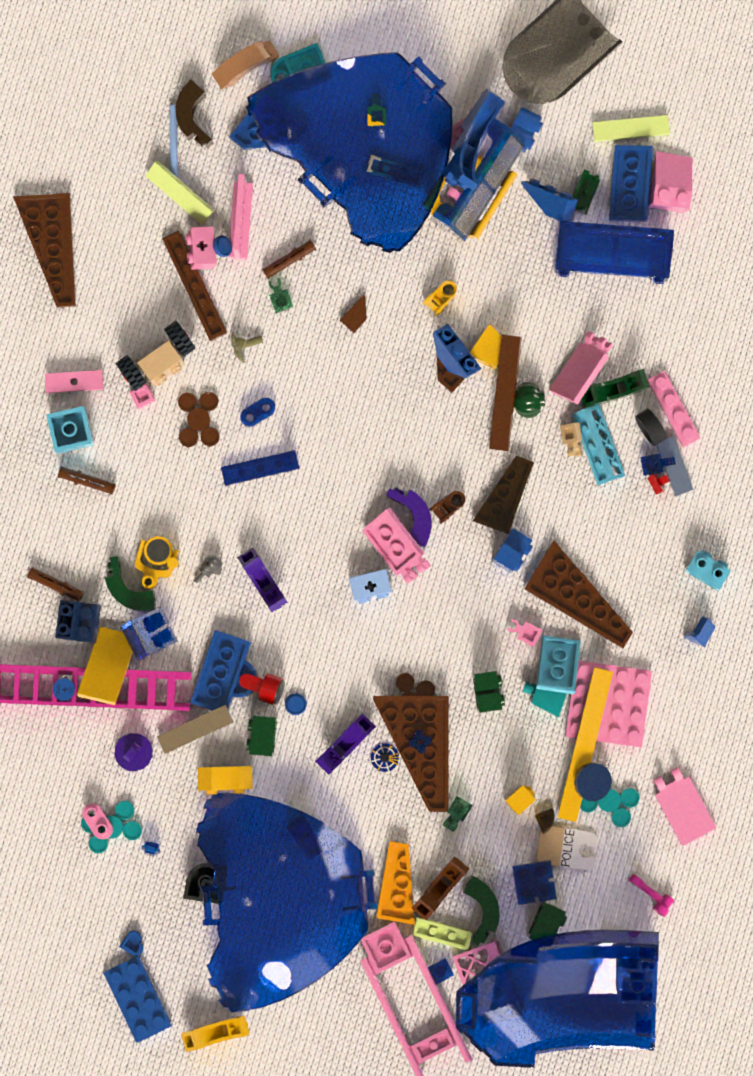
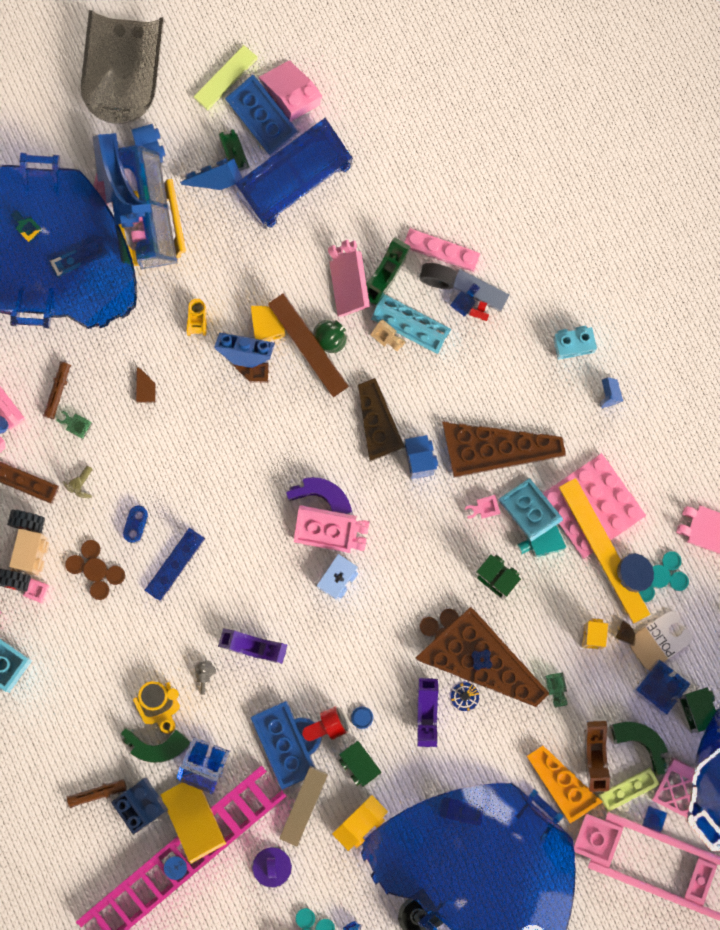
camera: 45 degrees left, 5 degrees down
(65, 473) = (28, 701): reddish brown pin -> none
(447, 507) = (341, 467): reddish brown piece -> none

